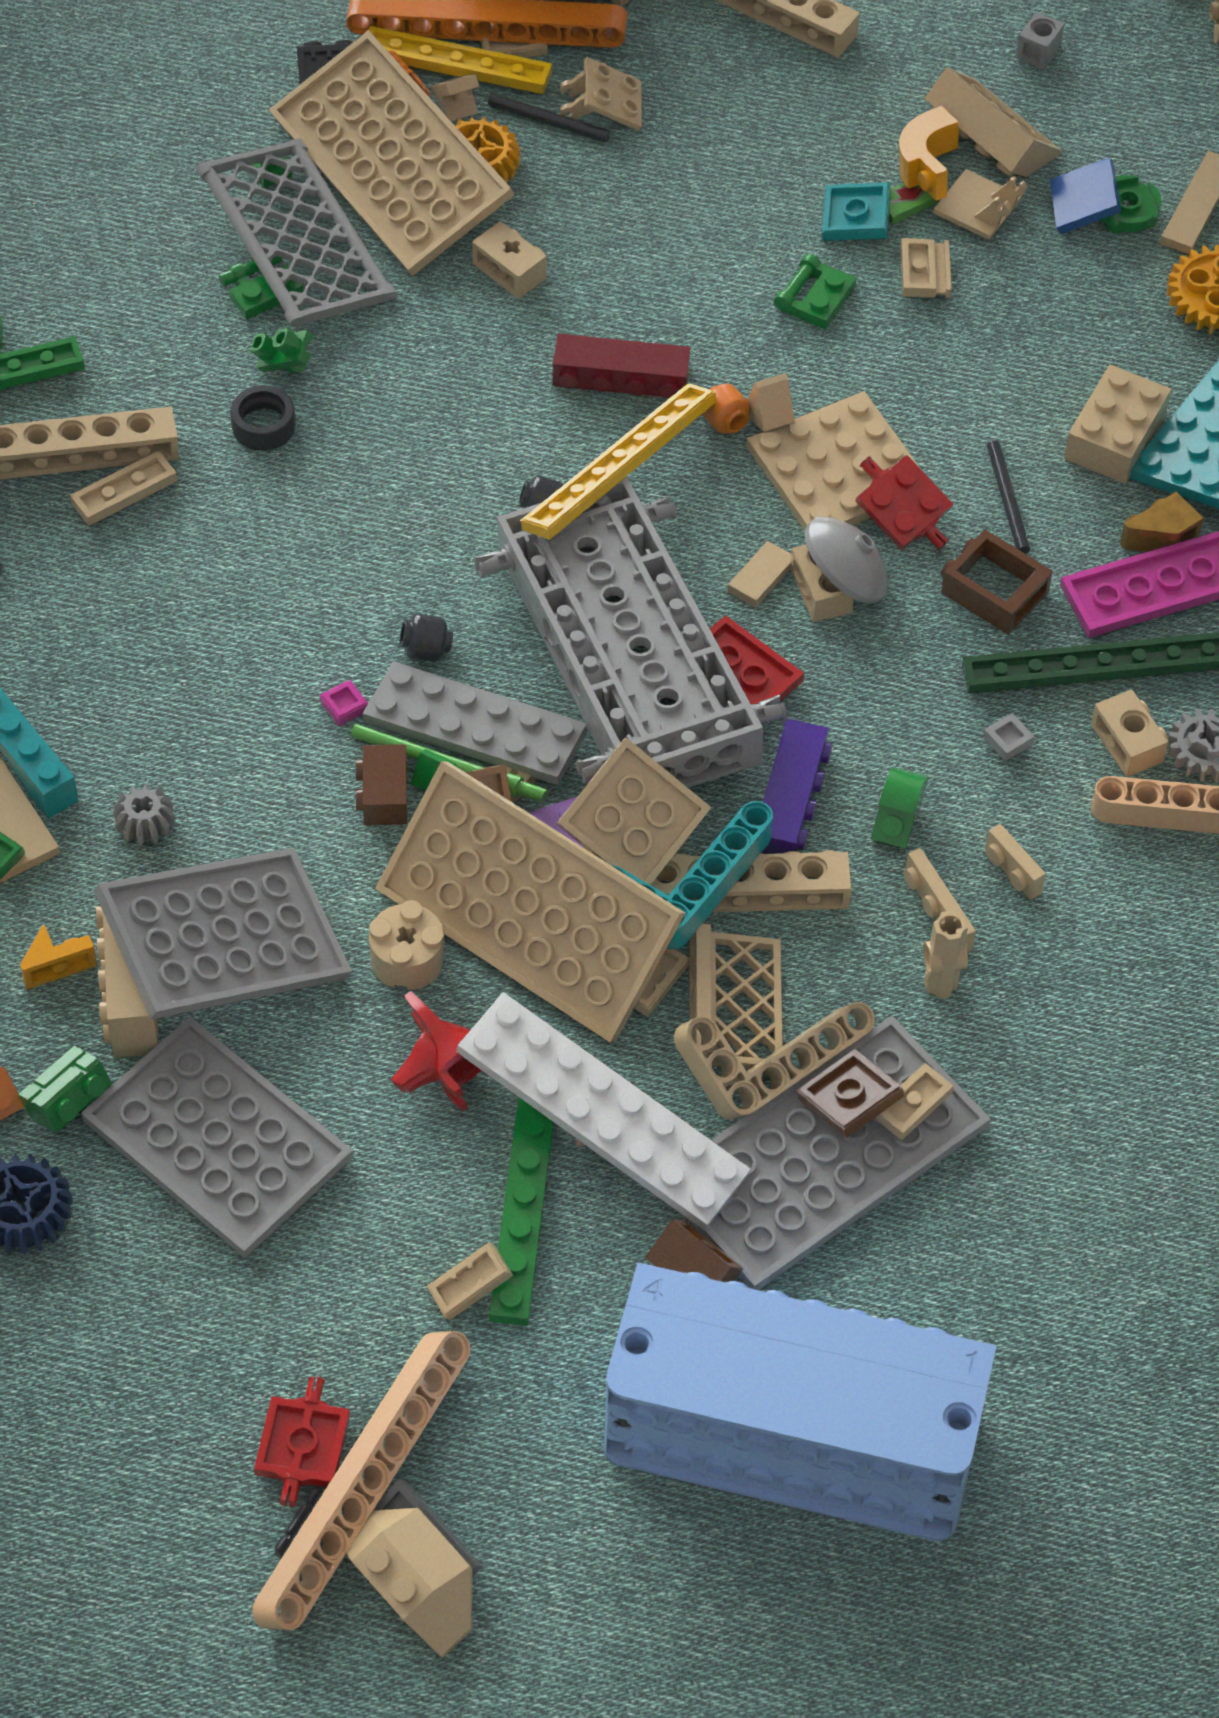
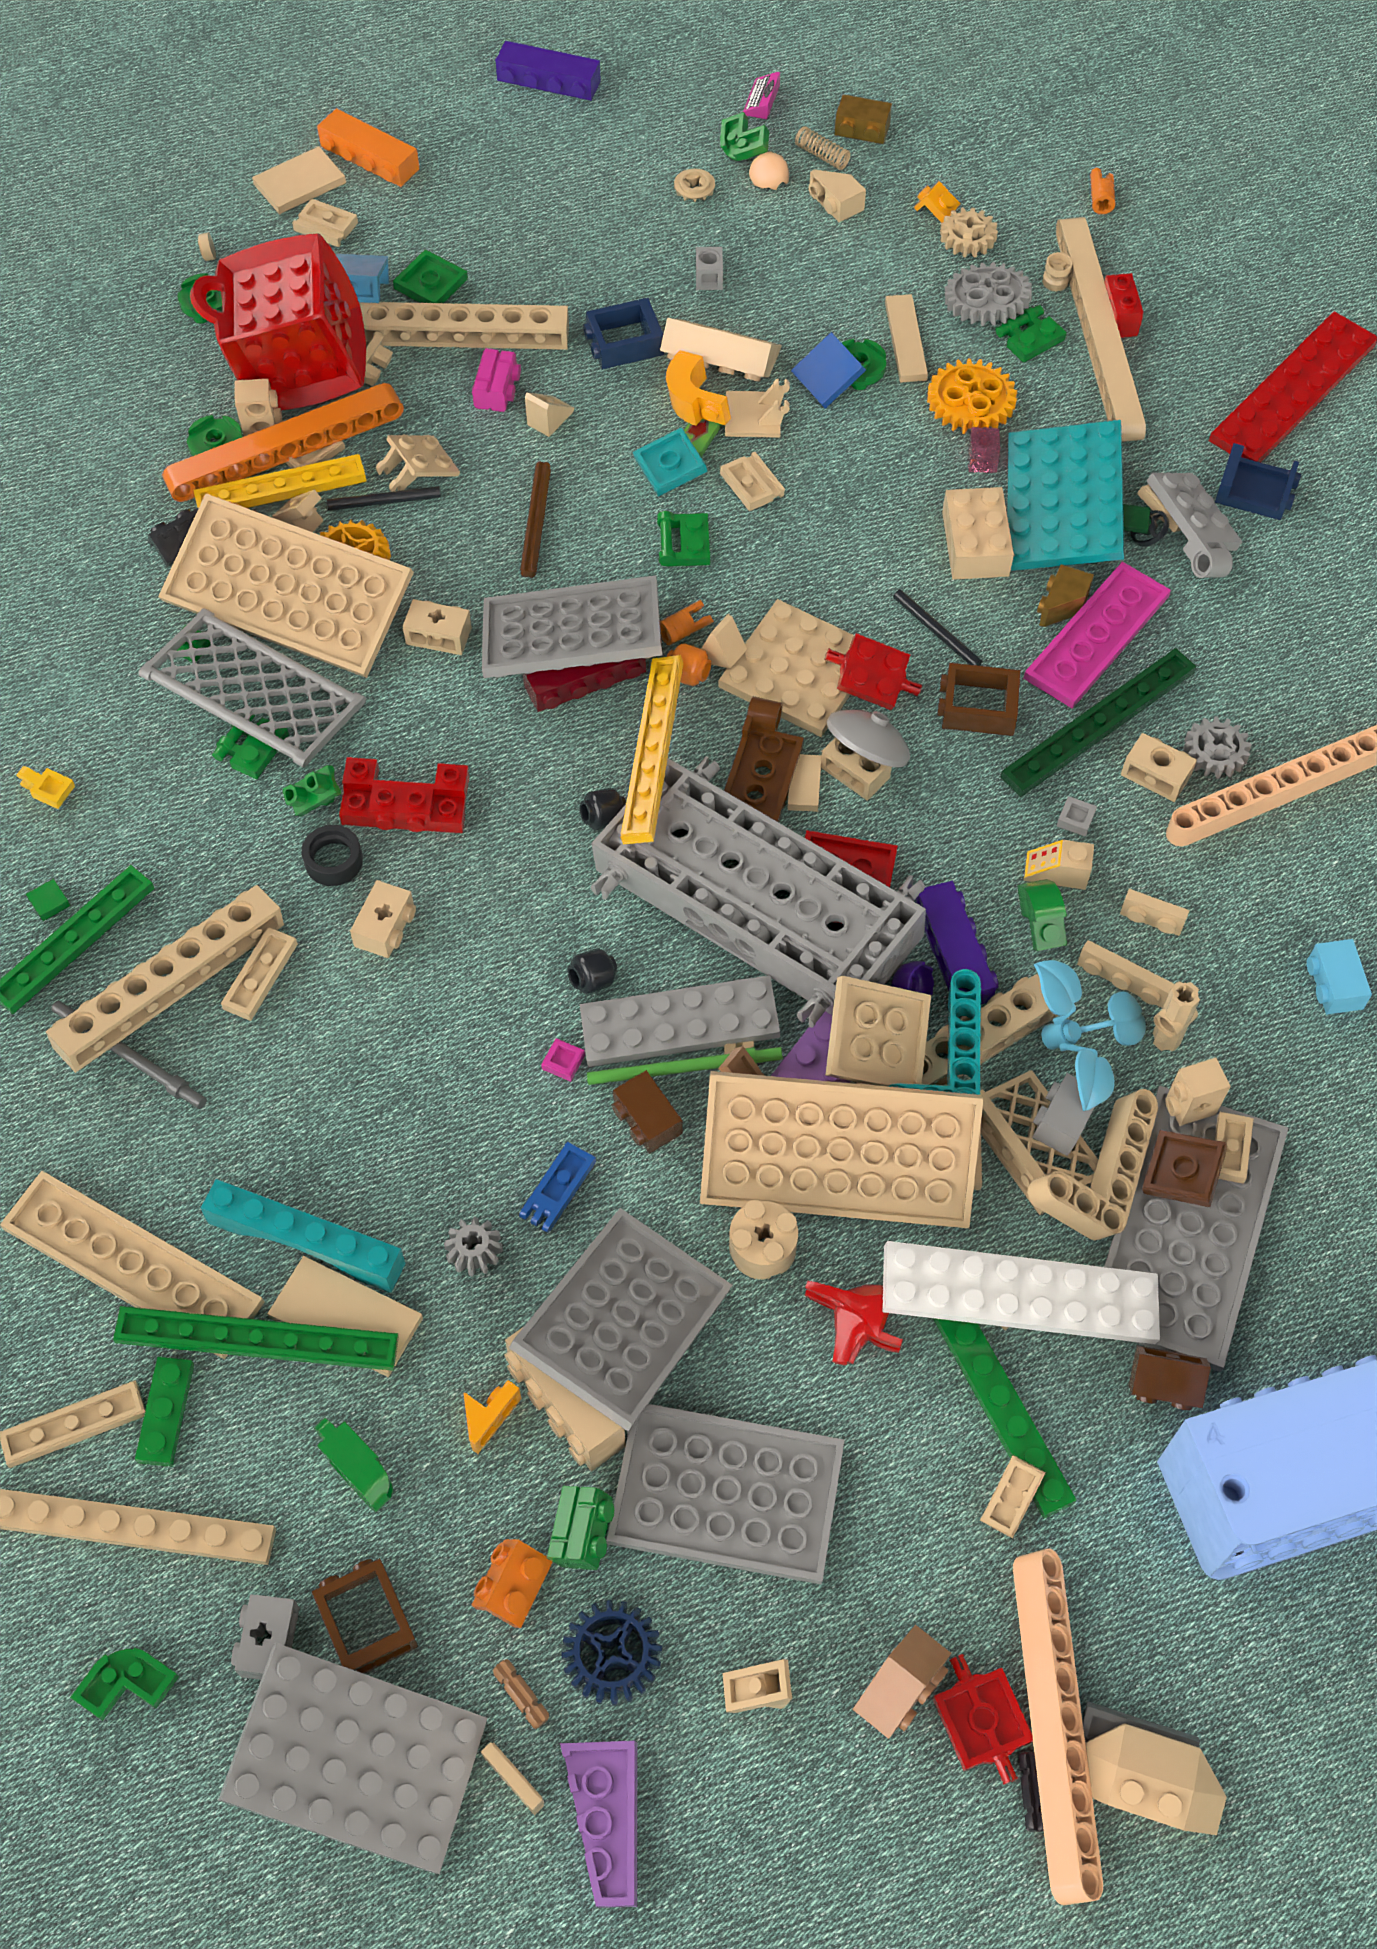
camera: 30 degrees left, 5 degrees up
(51, 234) = (48, 788): none -> yellow plate
(124, 1299) = (758, 1687): none -> tan slope
(248, 1360) = (903, 1679): none -> brick
(256, 806) = (558, 1186): none -> blue hinge
(267, 495) = (383, 919): none -> tan brick
(361, 405) = (404, 804): none -> red bracket
(426, 768) = (679, 1081): green tile -> none
(632, 317) = (571, 627): none -> light grey plate
(681, 205) = (535, 519): none -> reddish brown axle
(725, 798) = (914, 977): none -> dark purple hair
(738, 53) = (495, 380): none -> dark pink brick
(740, 518) = (767, 748): none -> reddish brown hinge
(746, 368) = (682, 624): none -> orange hinge
(767, 107) = (546, 412): none -> tan slope
(776, 989) = (1063, 1119): none -> light grey brick
(817, 962) = (1093, 1073): none -> medium azure plant
(897, 84) = (629, 349): none -> dark blue window
(909, 1028) = (1197, 1092): none -> tan brick
(957, 773) = (1062, 862): none -> tan slope
(1157, 1015) = (1339, 976): none -> medium azure brick
(1190, 347) = (984, 450): none -> clear pink brick

